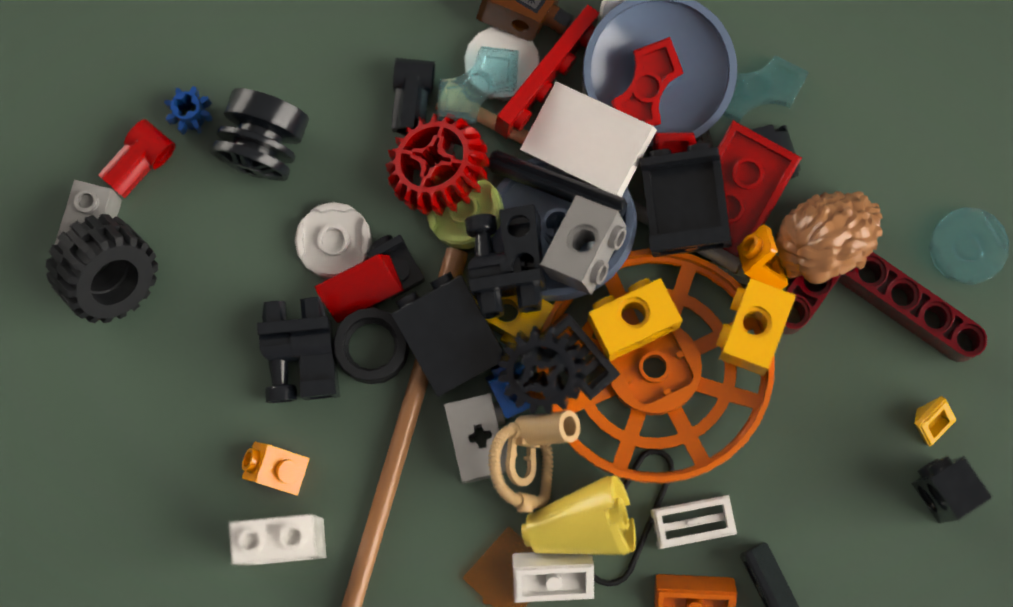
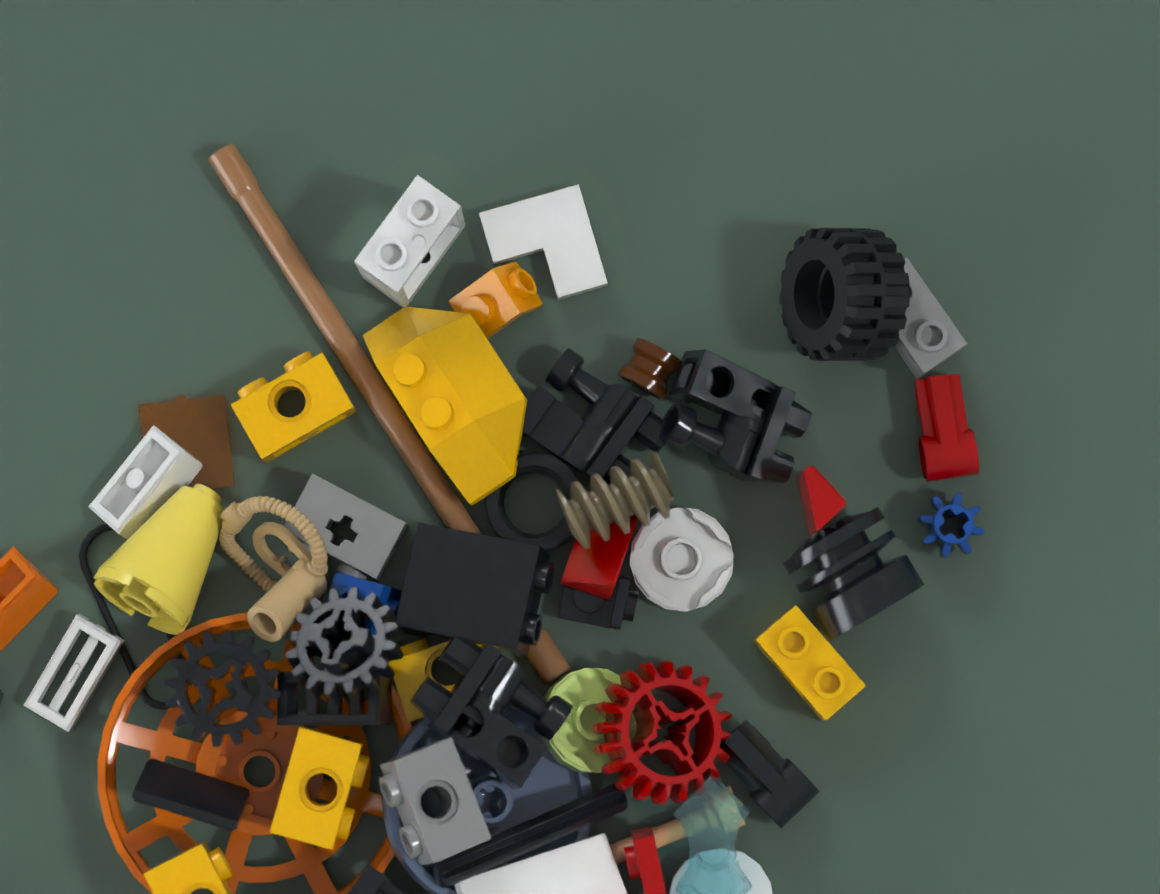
camera: 130 degrees right, 5 degrees up
(202, 472) = (550, 224): none -> white tile
(218, 264) = (750, 421): none -> black hips
(235, 187) = (818, 499): none -> red slope
(239, 346) = (649, 368): none -> reddish brown wheel
(327, 294) = (617, 501): none -> dark tan piece
(330, 120) = (809, 663): none -> yellow brick
(345, 443) = (453, 394): none -> yellow wedge
(415, 513) = (324, 407): none -> yellow brick
(630, 437) = (202, 676): none -> black gear
(701, 385) = (191, 794): none -> black slope

